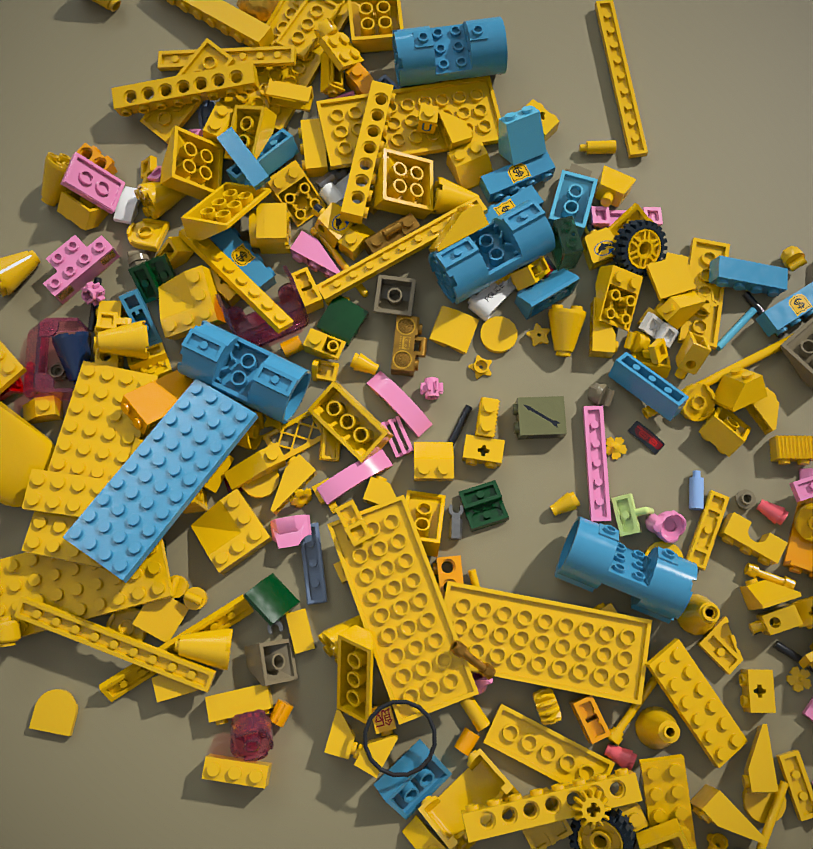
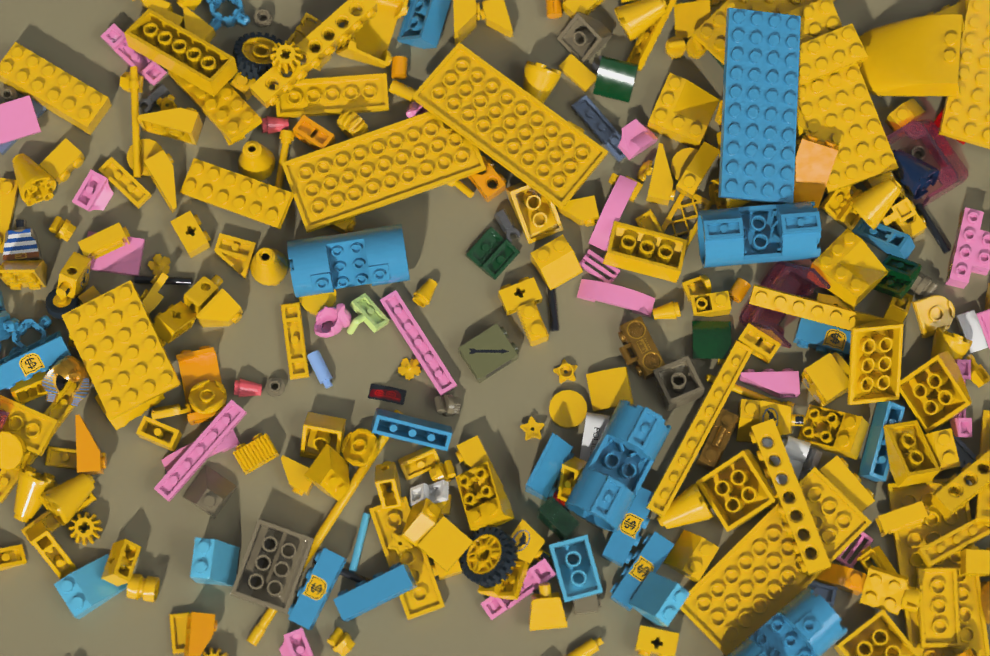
camera: 150 degrees right, 0 degrees up
(93, 293) = (936, 230): bright pink gear -> none
(243, 158) = (894, 420): dark azure tile -> none
(353, 522) = (587, 162): yellow slope -> none
(355, 673) = (515, 58): yellow slope -> none
(365, 739) = (449, 4): black piece -> none
(384, 721) = (474, 43): yellow brick -> none
(427, 118) = (757, 566): yellow brick -> none
(431, 388) = (596, 323): bright pink gear -> none
(454, 130) = (725, 571): yellow slope -> none
(461, 224) = (658, 463): yellow slope -> none
(485, 669) = (445, 115): pearl gold bar -> none
(565, 328) = (513, 446): yellow cone -> none
(656, 351) = (419, 470): yellow tile -> none
(735, 532) = (237, 351): yellow arch -> none
(753, 570) = (239, 329): yellow bar -> none

